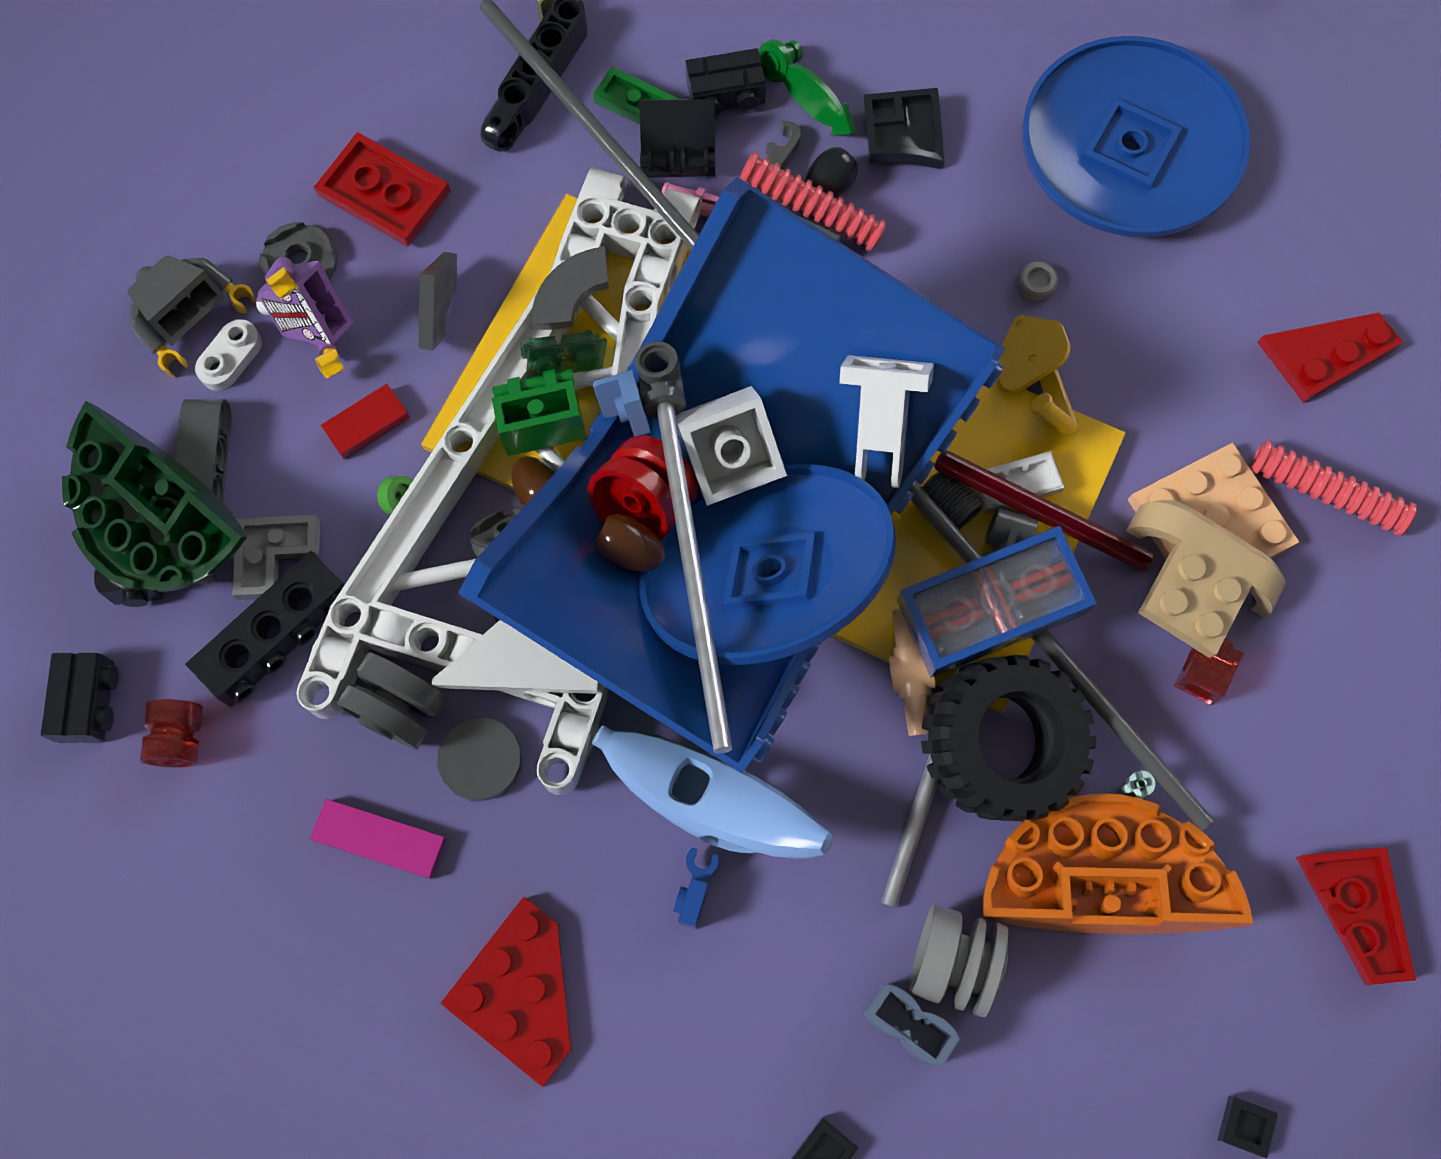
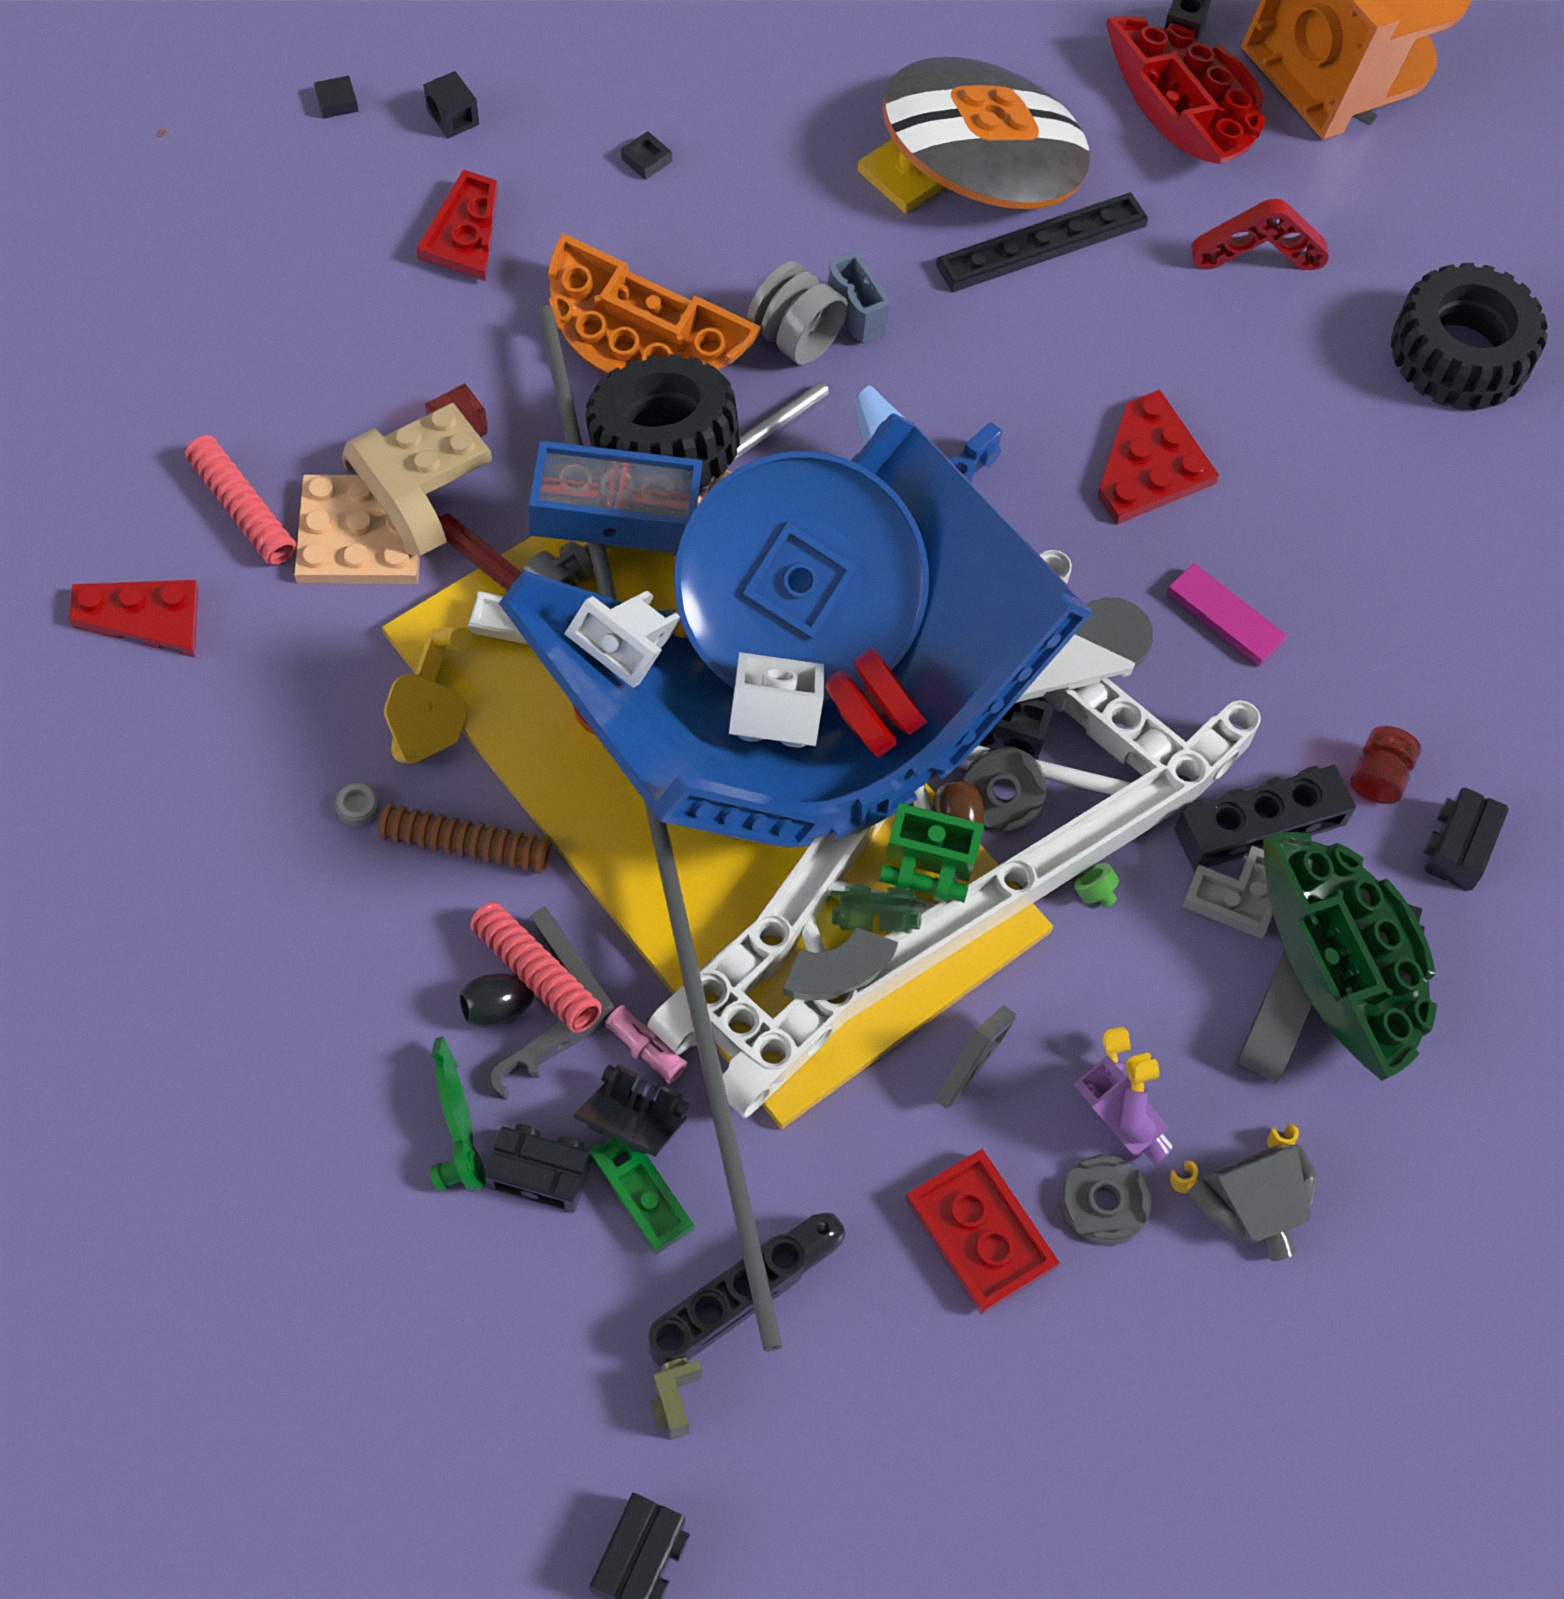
camera: 160 degrees left, 10 degrees down
(231, 354) = (1221, 1120): white plate -> none
(365, 421) = (1100, 982): red tile -> none
(394, 696) = (1178, 685): dark grey wheel -> none
(622, 397) = (854, 756): medium blue bracket -> none
(629, 544) = (912, 659): reddish brown animal -> none
(663, 399) = (820, 745): flat silver piece -> none
(905, 127) = (381, 1022): black plate -> none
(963, 280) = (464, 838): none -> dark orange piece
(1138, 785) = (575, 367): light aqua piece -> none
(1143, 91) = (148, 825): blue dish -> none

